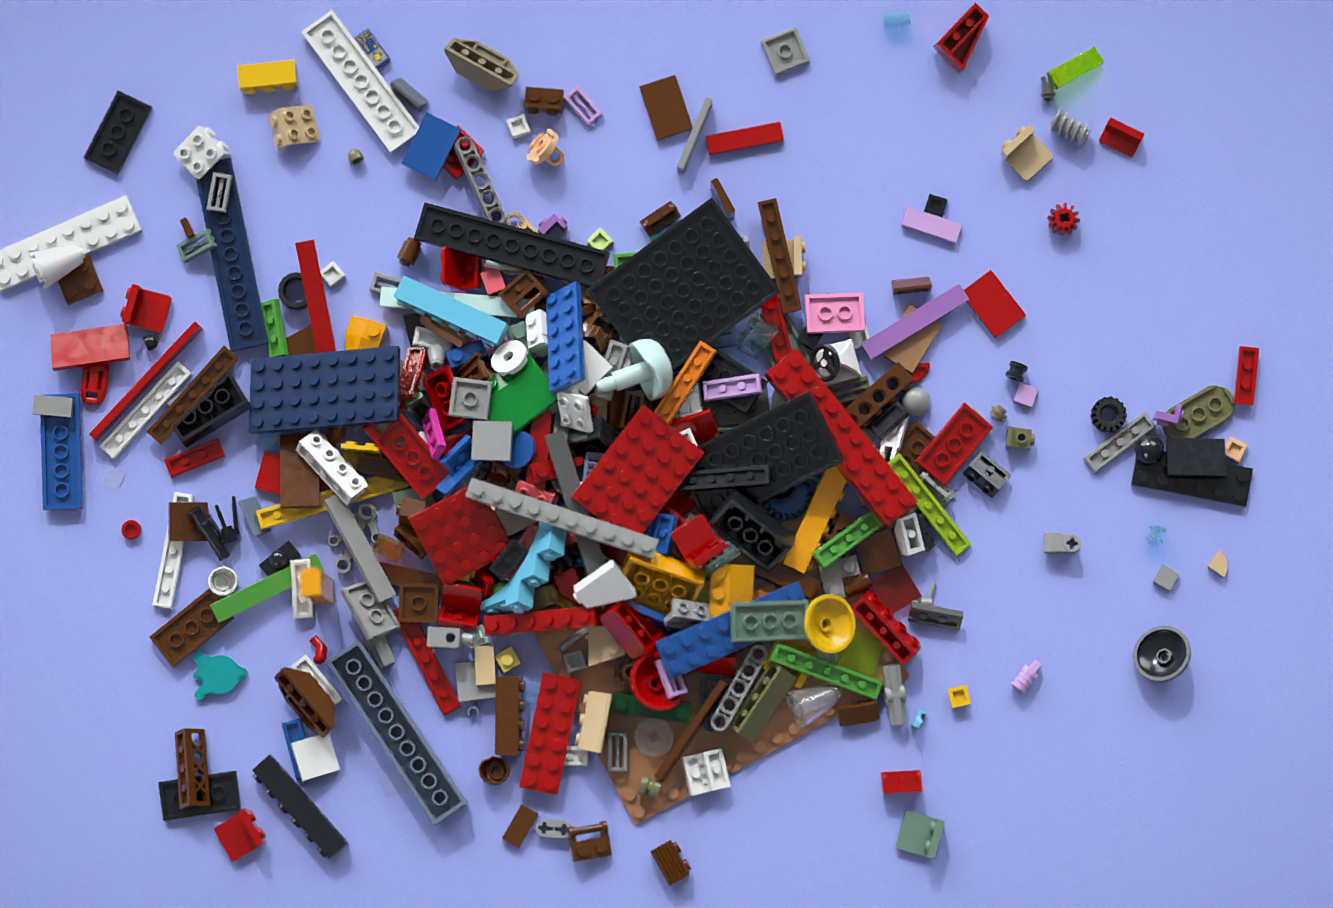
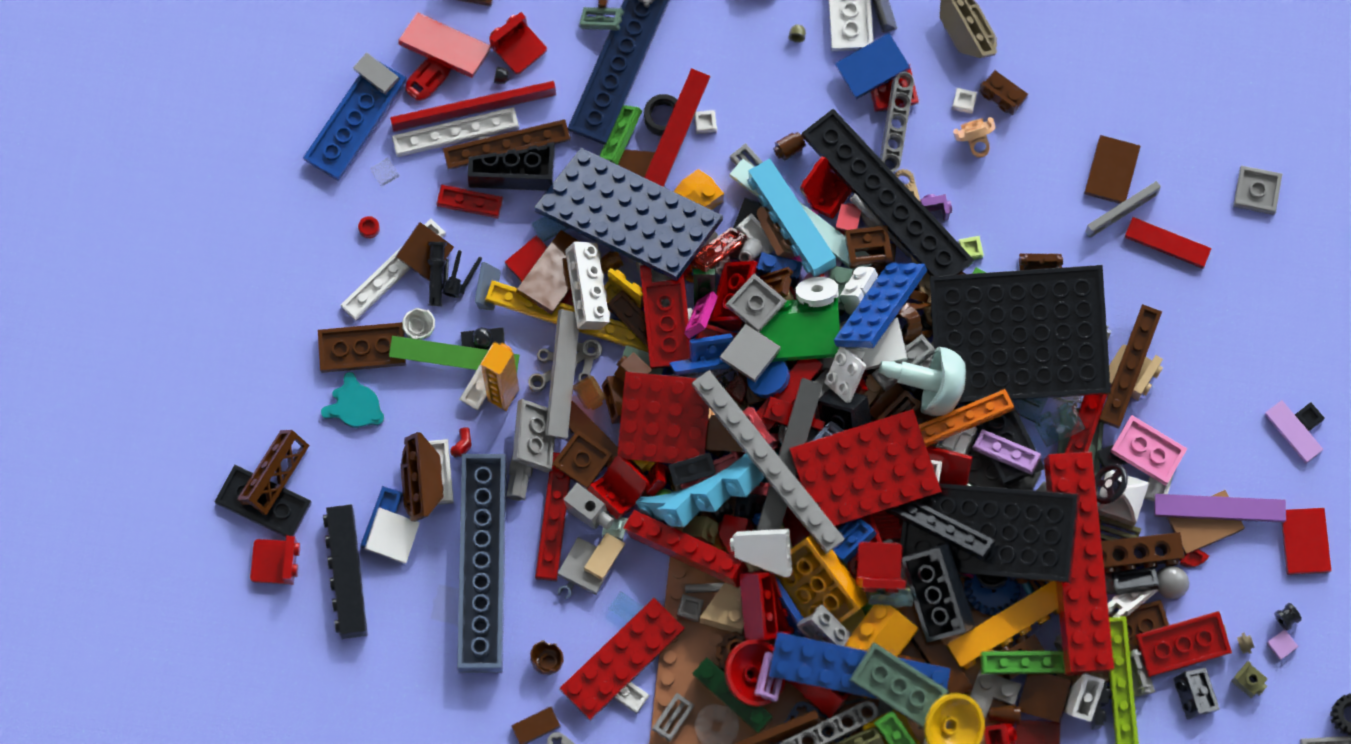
camera: 30 degrees right, 10 degrees down
(507, 659) = (629, 566): light yellow plate -> none
(509, 715) = (595, 616): reddish brown brick -> none
(593, 118) = (1038, 136): lavender tile -> none
(594, 721) = (670, 674): tan slope -> none
(722, 199) = (1111, 280): reddish brown tile -> none
(911, 285) = (1237, 474): slope -> none

